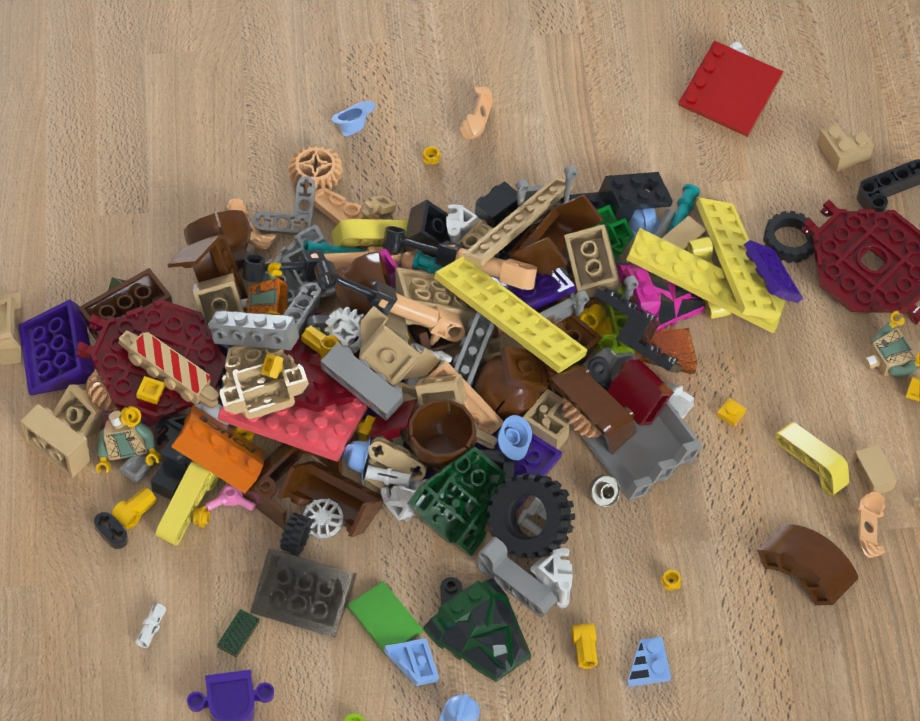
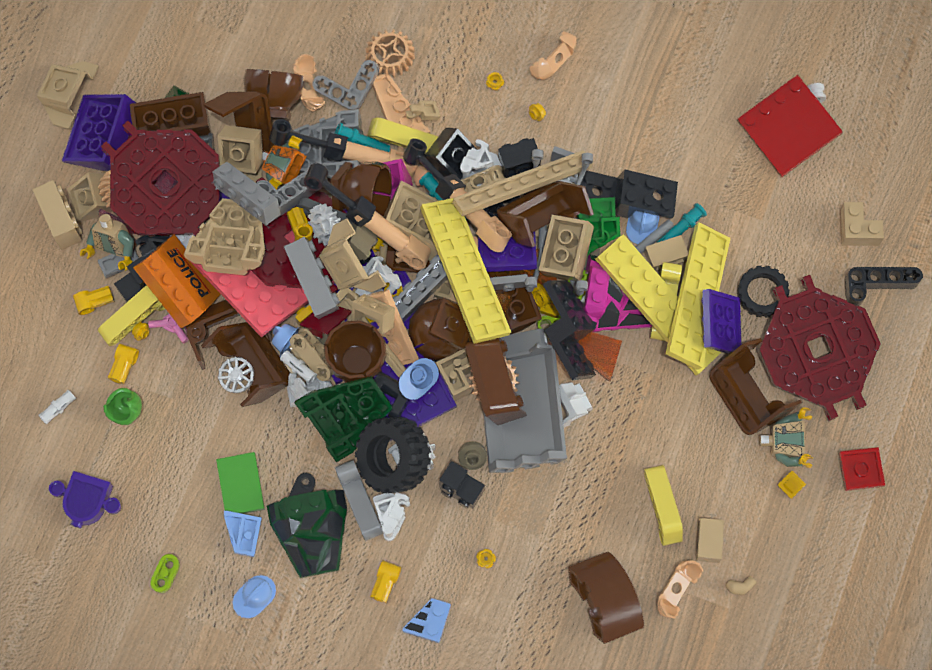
camera: 30 degrees right, 15 degrees up
(107, 533) = (62, 311): black beam -> none
(135, 416) = (120, 225): yellow plate -> none
(150, 390) = (141, 209): yellow plate -> none
(170, 367) = (165, 195): tan hinge -> none
(199, 550) = (124, 359): none -> yellow piece
(224, 599) = (121, 408): none -> bright green piece
(238, 633) = (121, 443): clear green tile -> none
(272, 366) = (241, 235): yellow plate -> none
(296, 533) = (203, 381): black tyre -> none
(303, 592) = (187, 432): clear smoke slope -> none
(354, 118) = (445, 18): light blue piece -> none
(487, 166) = (537, 112): none -> yellow plate
(602, 377) = (517, 356): black plate -> none
(609, 522) = (458, 484): none -> black brick
(640, 391) = (540, 385): dark red brick -> none
(731, 412) = (620, 431): yellow plate -> none
(825, 333) = (743, 395): none -> reddish brown windscreen

